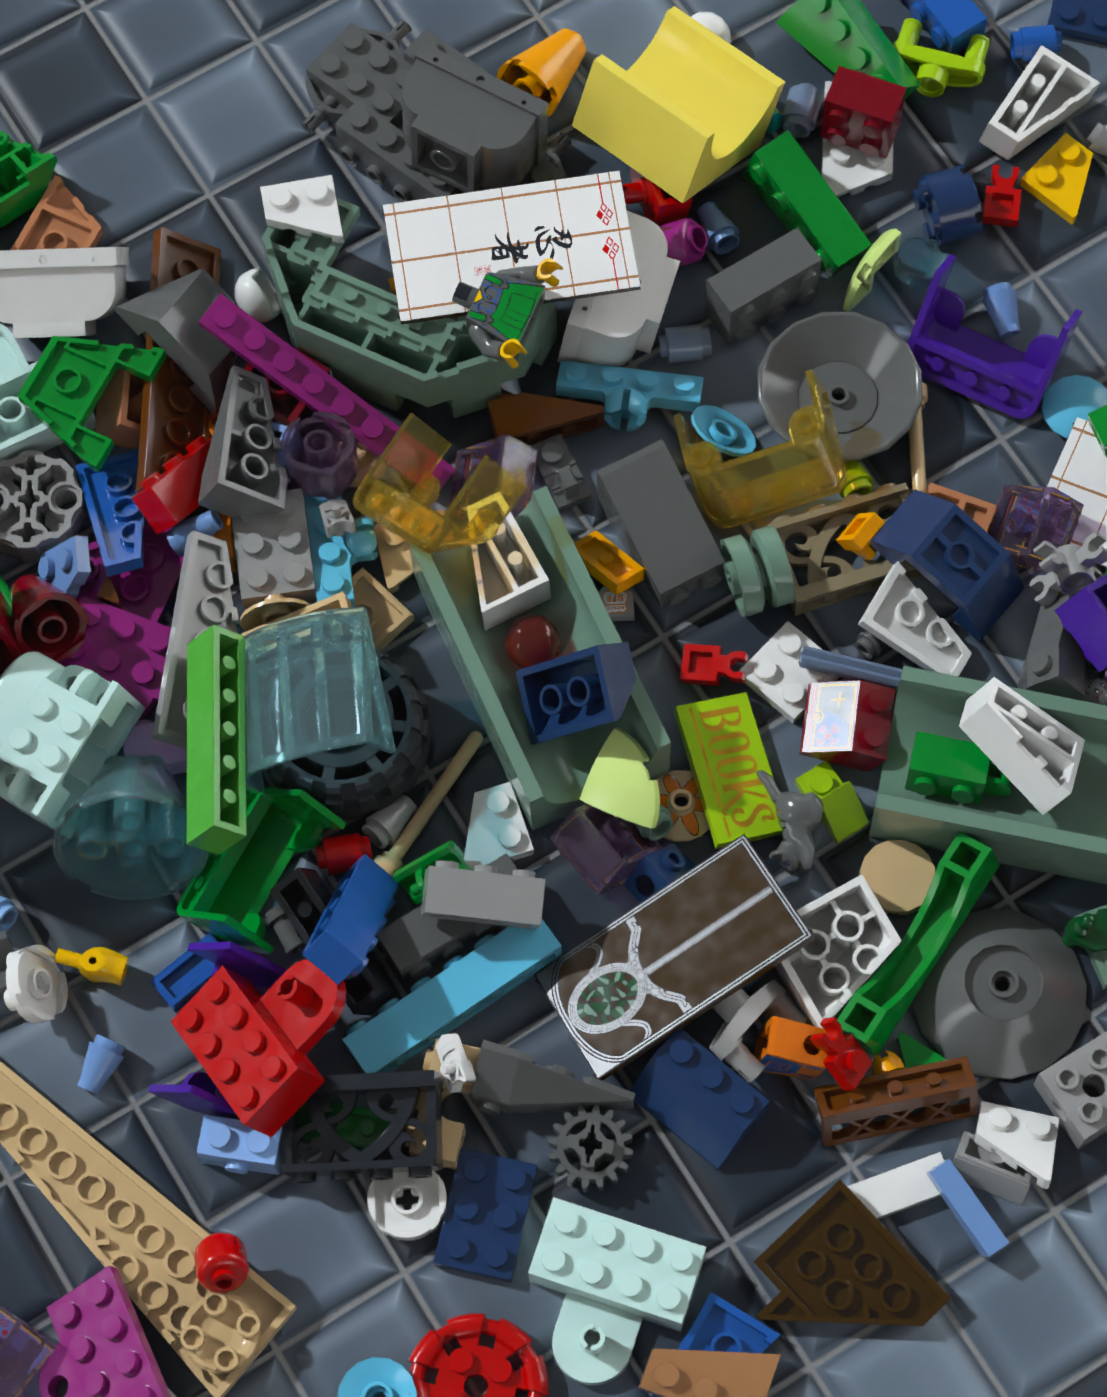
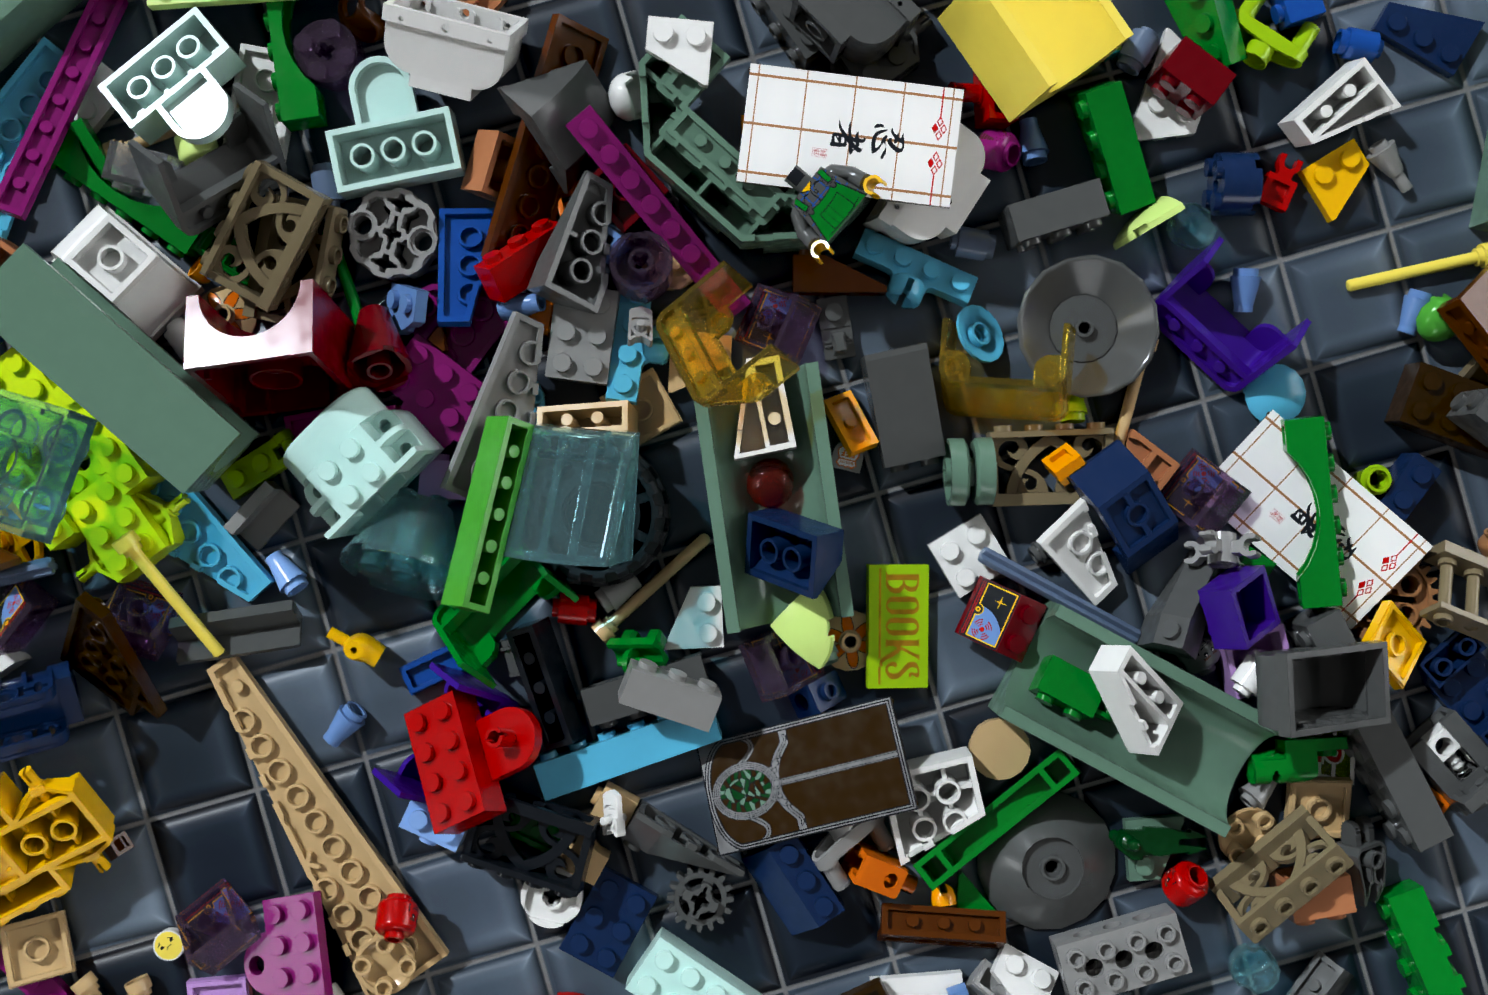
camera: 10 degrees right, 20 degrees up
(27, 970) = (292, 657): white plate -> none
(71, 382) = (447, 142): green wing -> none
(269, 609) = (569, 393): tan dish -> none
(352, 920) = (561, 685): blue brick -> none
(707, 664) = (904, 534): red plate -> none
(797, 818) = (937, 688): dark grey animal -> none
(841, 806) = (968, 672): lime slope -> none
(844, 1056) = (912, 893): red plate -> none

